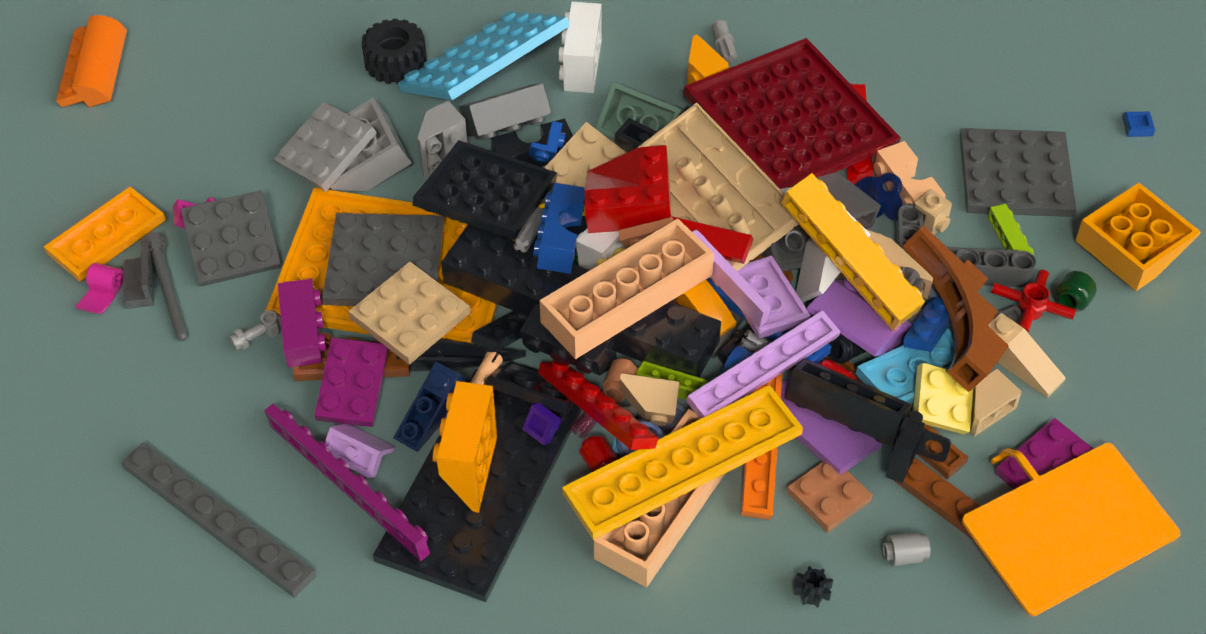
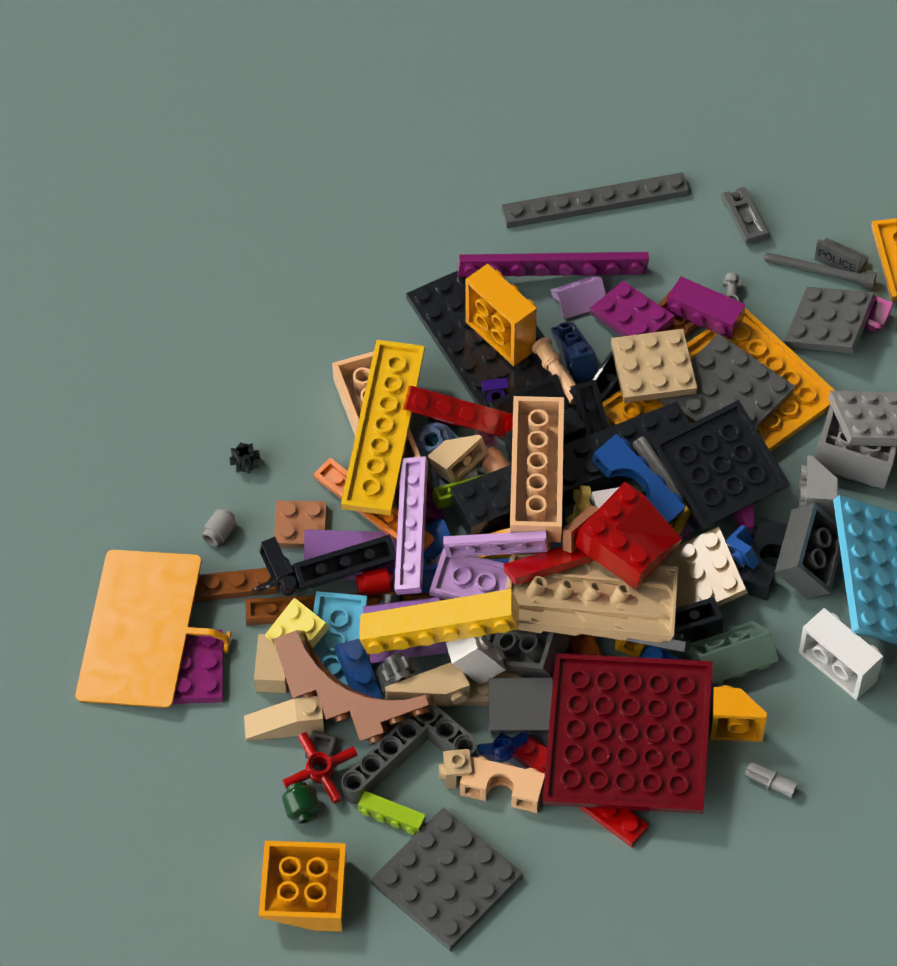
camera: 130 degrees right, 5 degrees up
(103, 286) = (849, 233): dark pink panel -> none
(141, 379) = (745, 215): none -> dark grey plate

